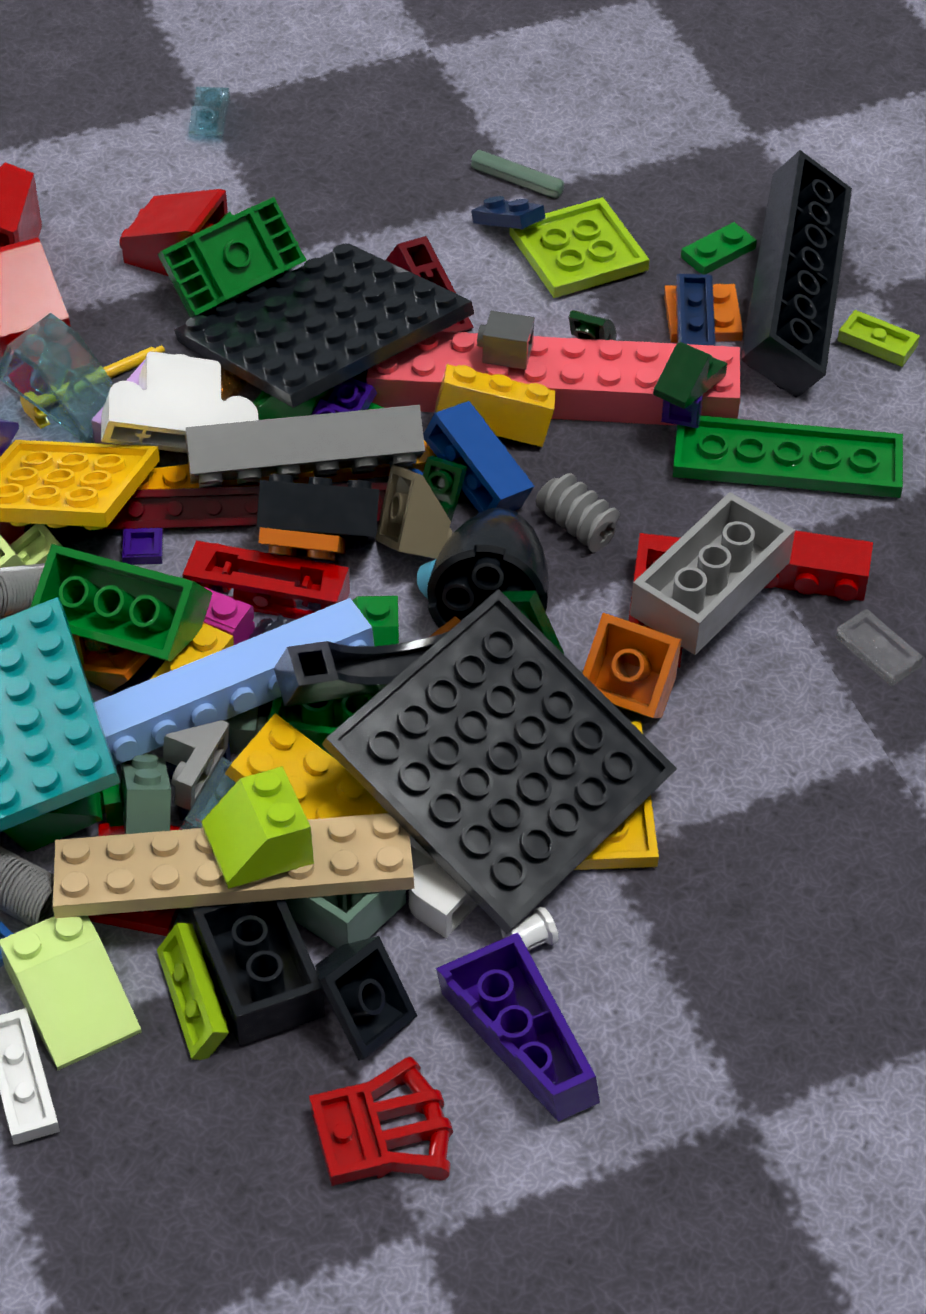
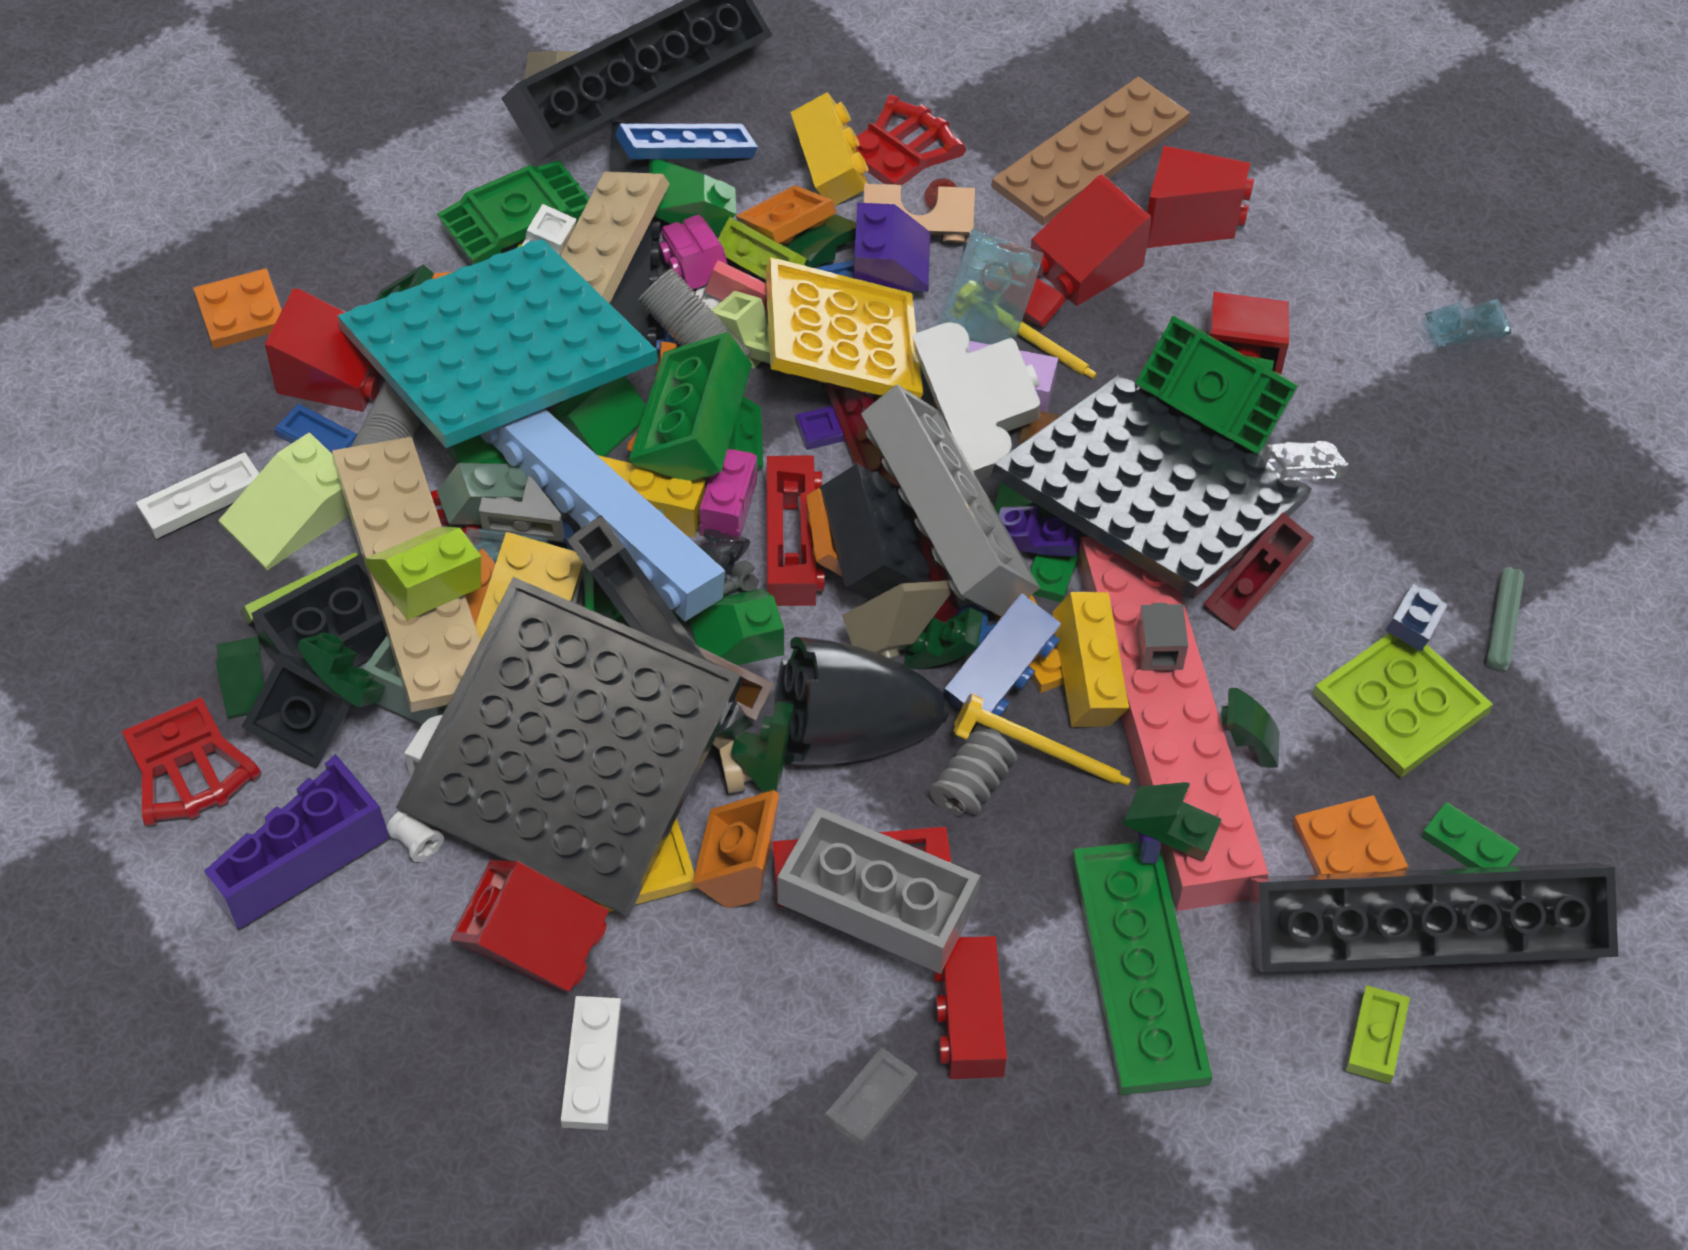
camera: 75 degrees right, 5 degrees up
(285, 1065) = (240, 674): none -> dark green slope
(323, 235) = (1305, 460): none -> clear plate
(342, 939) = (334, 666): none -> dark green slope
(536, 484) = (973, 712): none -> yellow piece
(668, 844) = (531, 924): none -> red slope
(695, 309) = (1321, 827): dark blue tile -> none
(805, 837) = (591, 1063): none -> white plate

